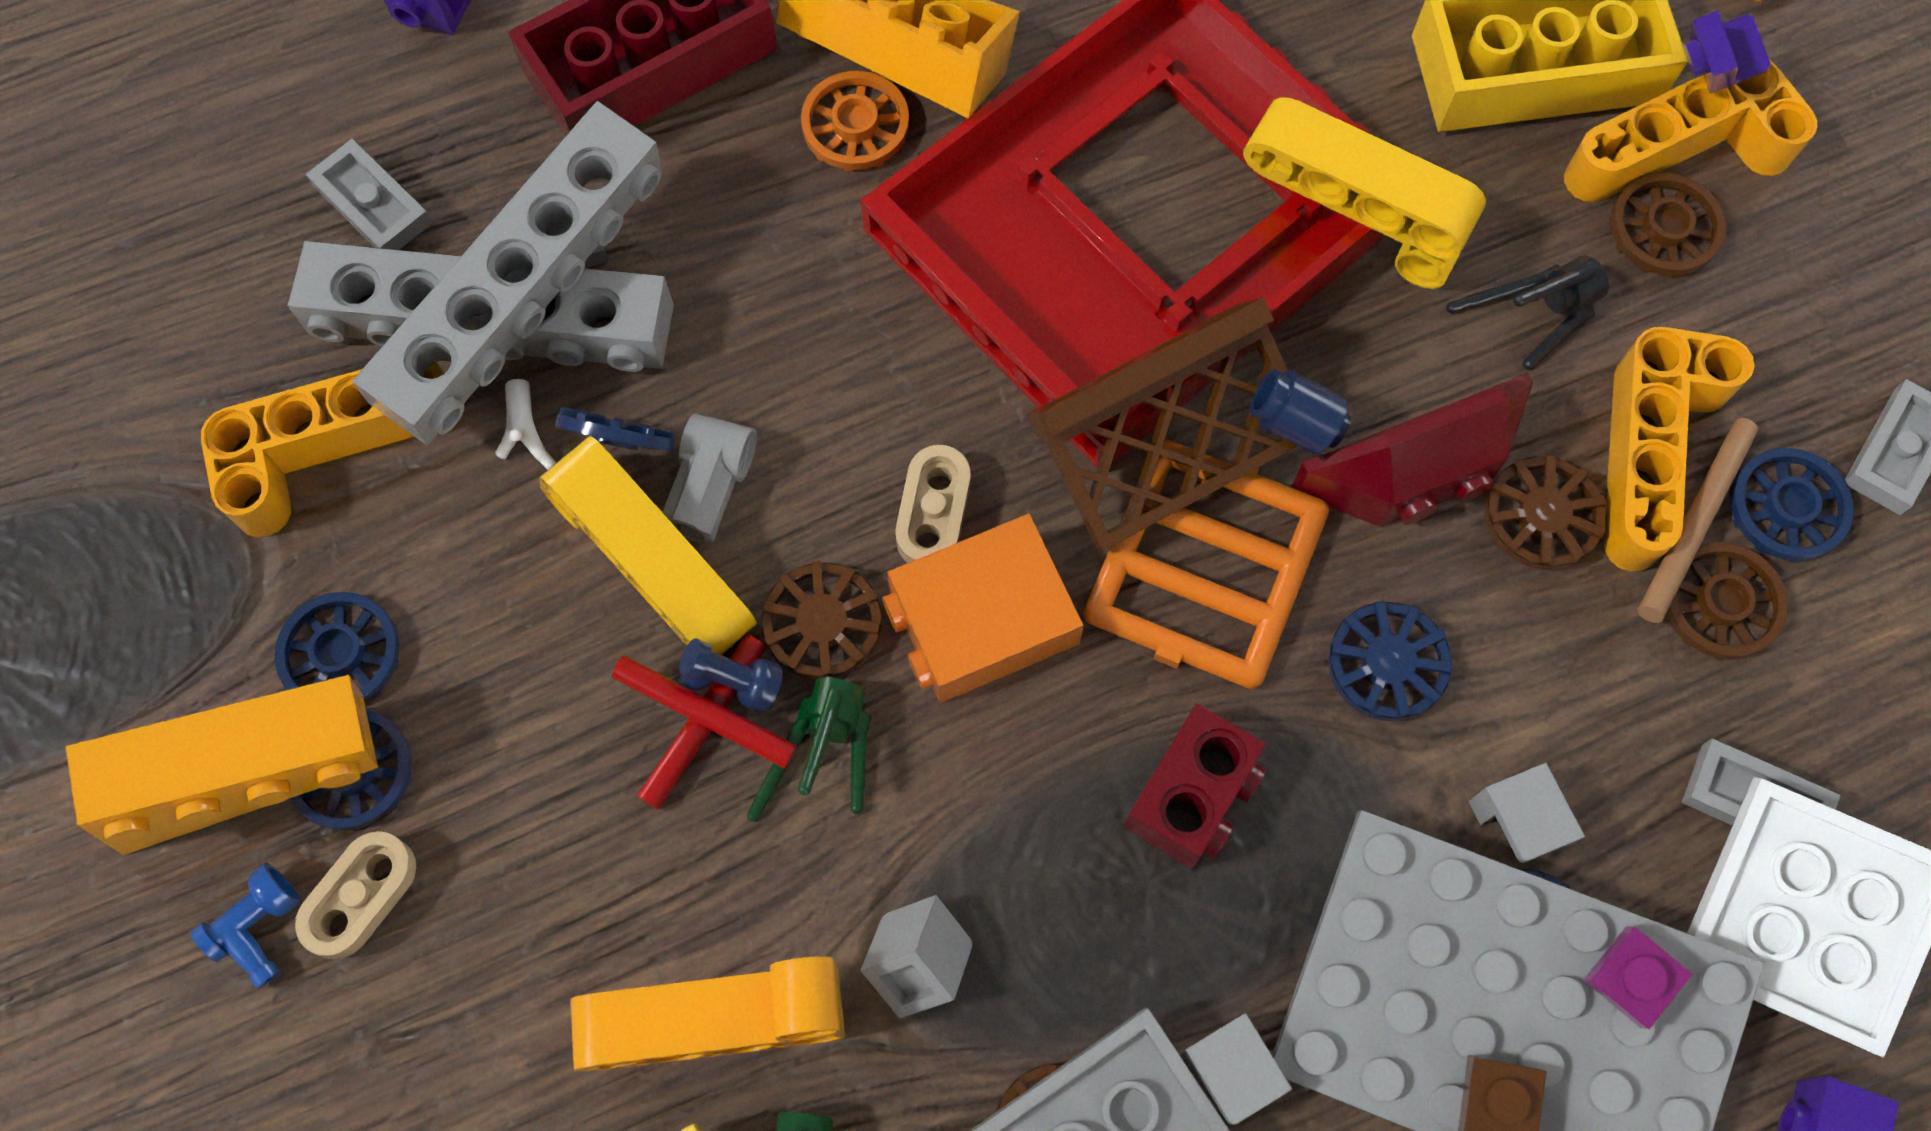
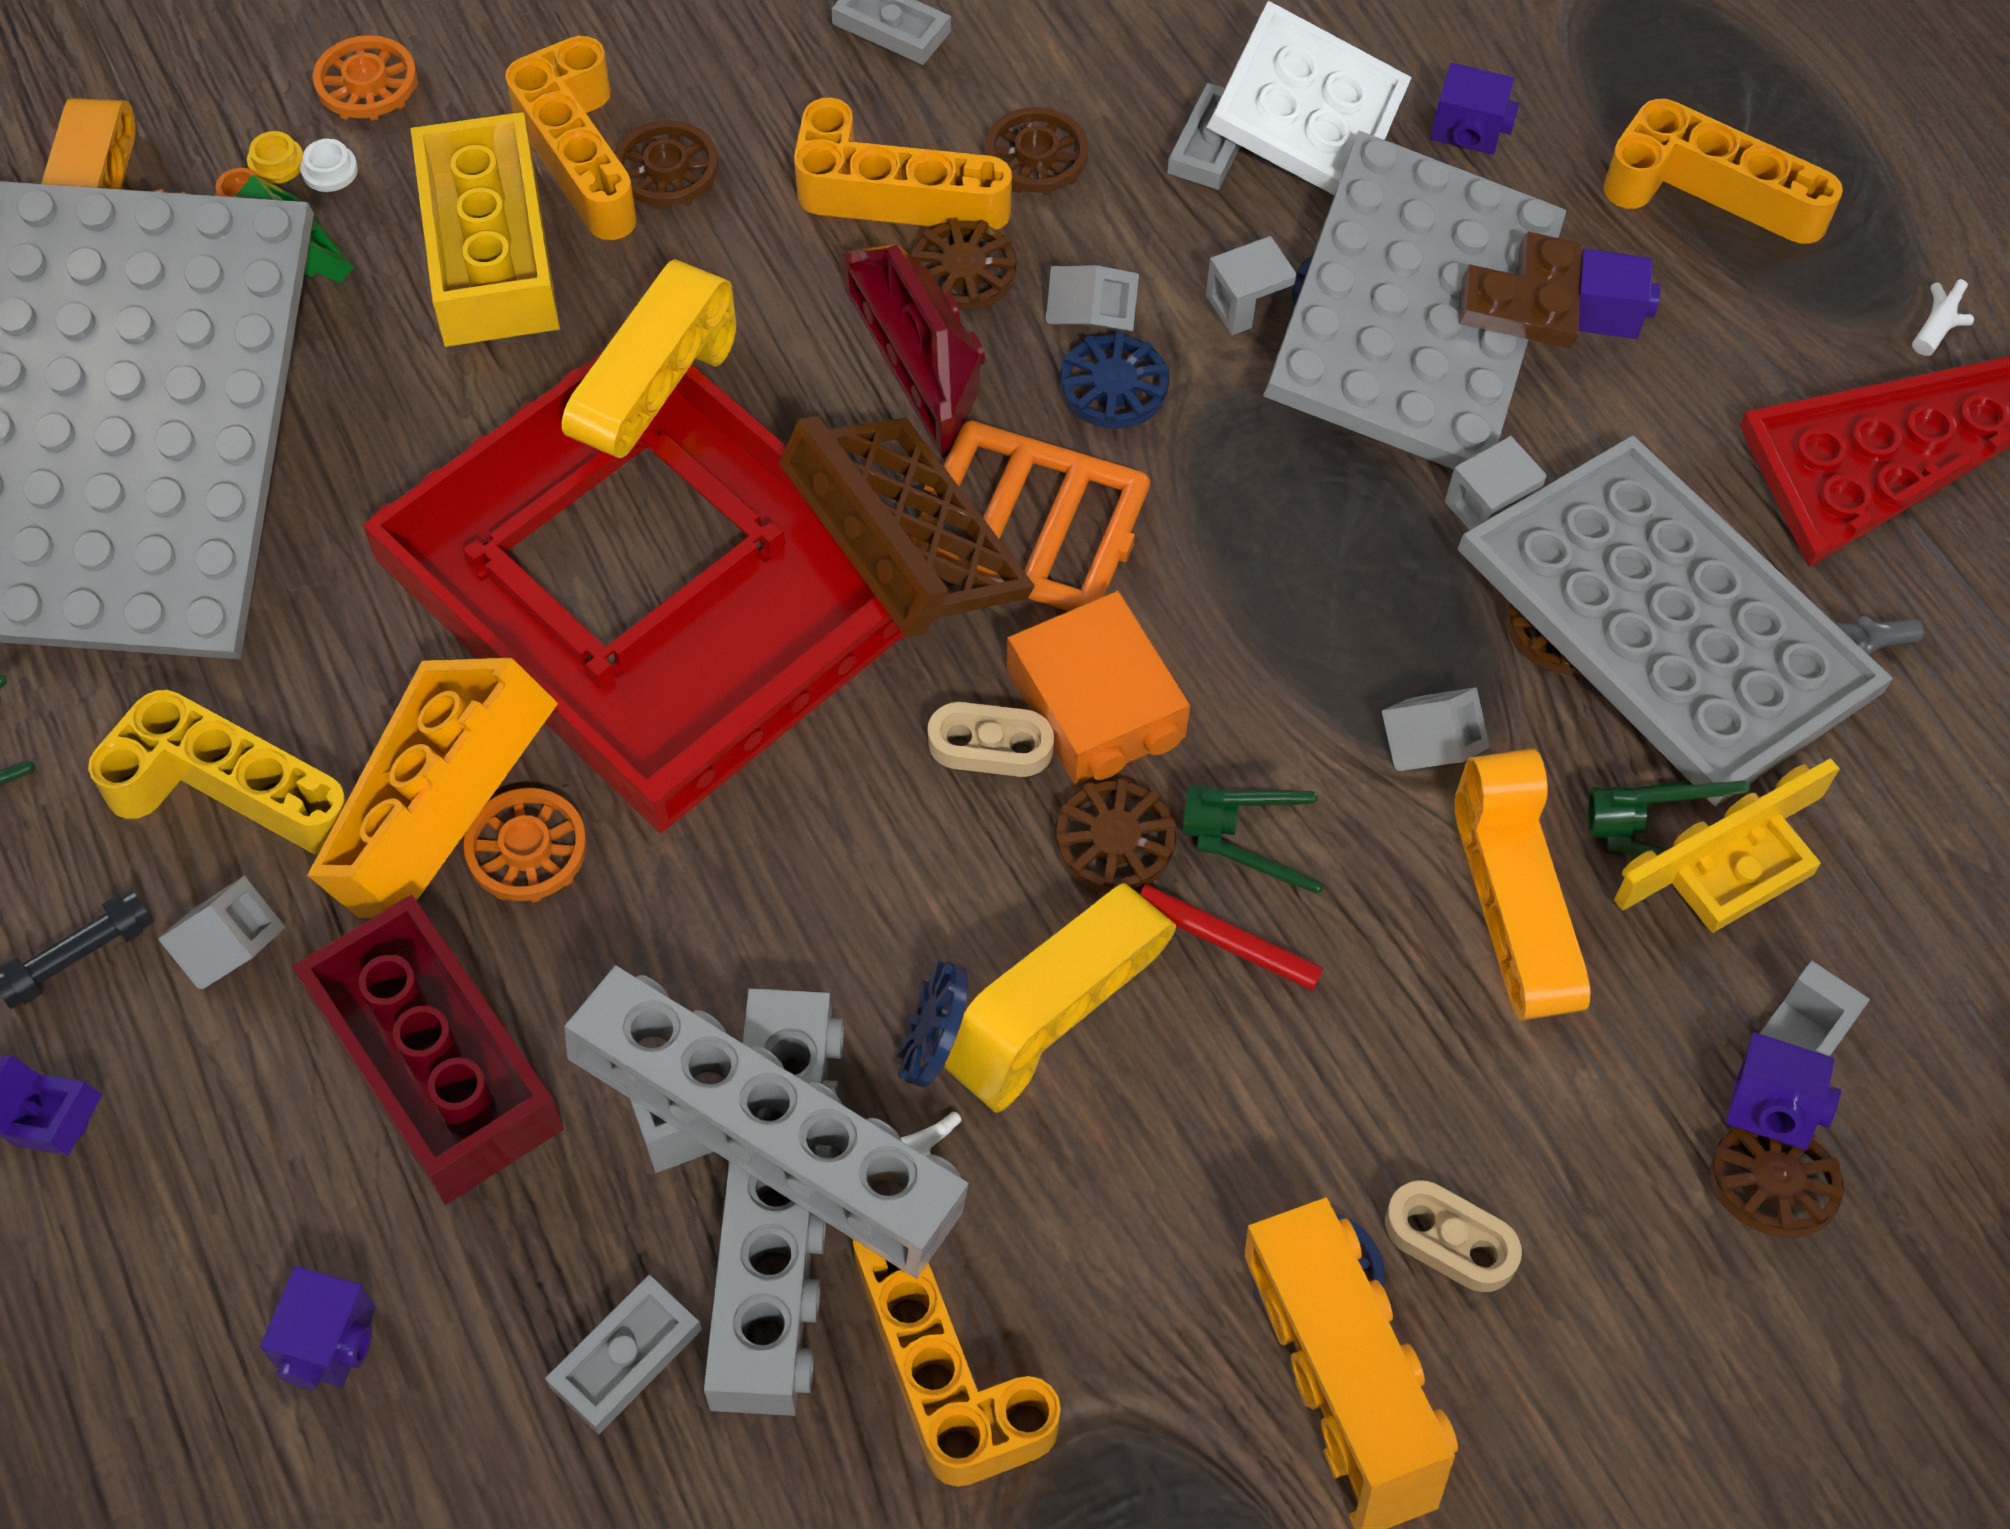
camera: 95 degrees left, 10 degrees down
(229, 934) = (1508, 1360): blue piece -> none
(337, 647) = (1189, 1308): dark blue wheel -> none
(704, 711) = (1227, 923): red bar -> none
(710, 461) = (949, 932): light grey piece -> none
(755, 683) = (1191, 883): dark blue piece -> none
(1185, 781) = (1247, 526): dark red brick -> none
(1300, 411) = (899, 410): dark blue brick -> none
(1498, 640) = (1092, 297): none -> light grey panel
(1563, 288) = (743, 234): black plant -> none
(1637, 977) = (1387, 201): magenta plate -> none
(1698, 520) = (912, 137): medium nougat bar -> none
(1725, 51) = (520, 80): dark purple bracket -> none
(1791, 504) = (944, 100): dark blue wheel -> none

